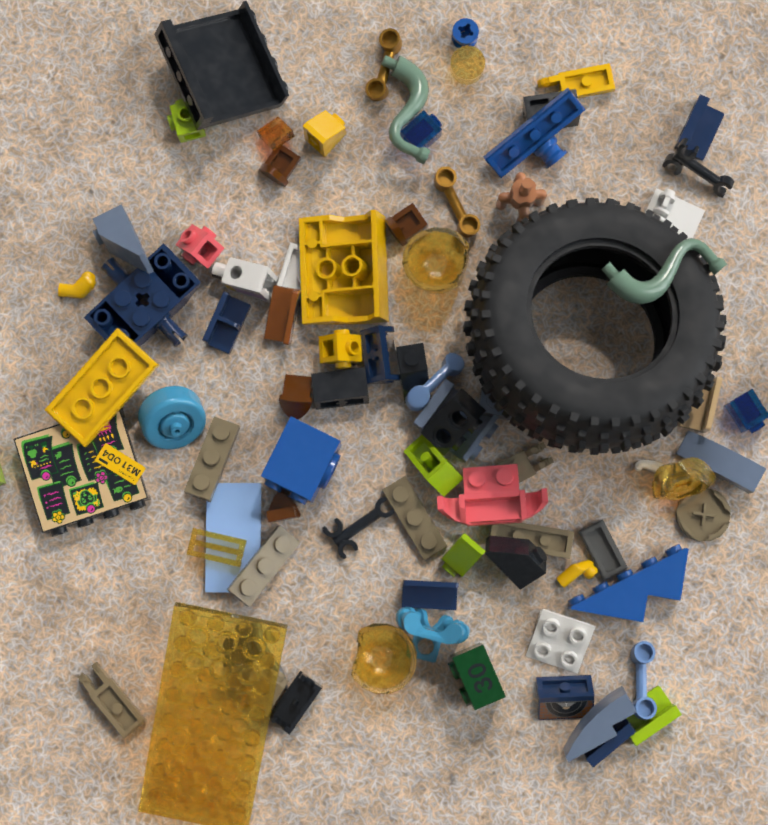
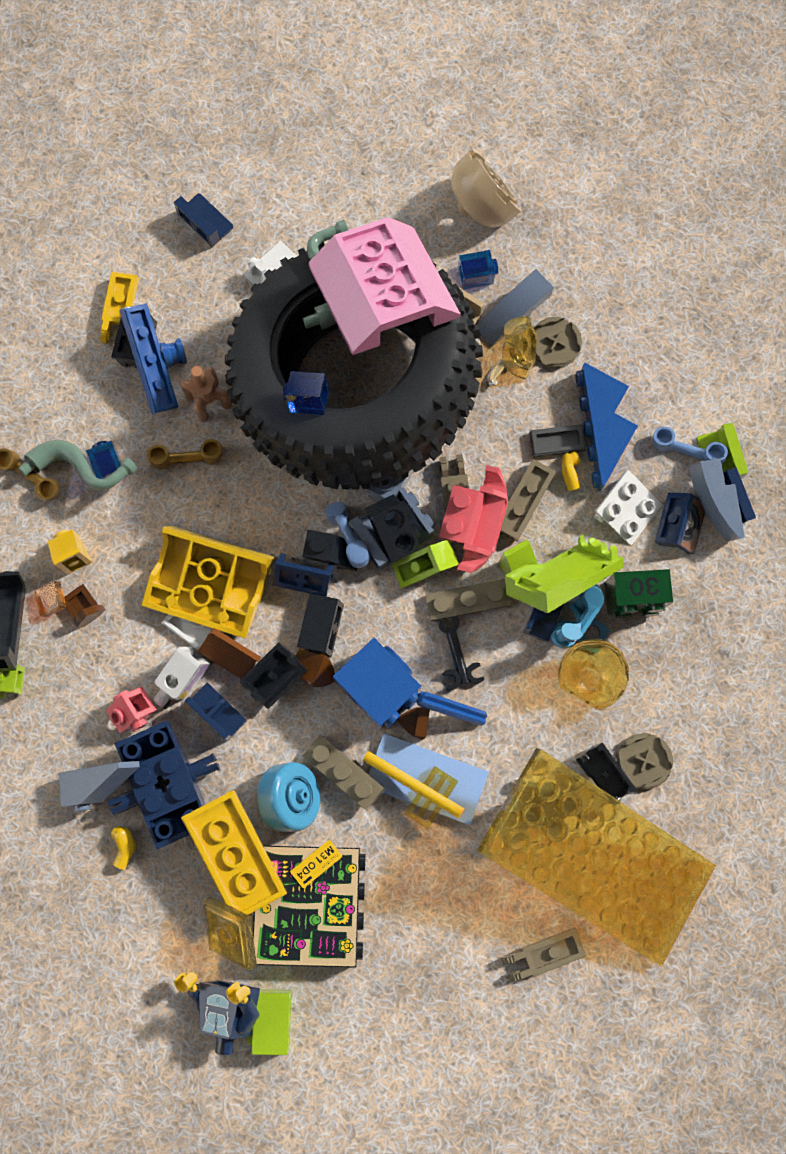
camera: 70 degrees left, 5 degrees down
(33, 409) = (229, 933): none -> clear yellow tile
(221, 527) = (414, 784): none -> yellow bar
(263, 566) = (465, 758): dark tan plate -> none
(276, 362) = (273, 675): none -> black hinge
(303, 537) = (451, 708): none -> blue axle
(321, 736) = (645, 760): none -> dark tan tile
(346, 349) = (283, 610): yellow brick -> none
(406, 224) = (187, 508): reddish brown tile -> none
(436, 260) = (233, 490): clear yellow cylinder -> none
(459, 596) = (564, 576): none -> lime piece
(464, 39) = (32, 395): blue wheel -> none
(467, 65) = (59, 398): clear yellow piece -> none
(516, 559) = (541, 516): black slope -> none
(536, 293) = (306, 392): none -> clear blue brick
(668, 322) = (379, 281): none -> bright pink slope
(685, 157) = (227, 236): black bar -> none

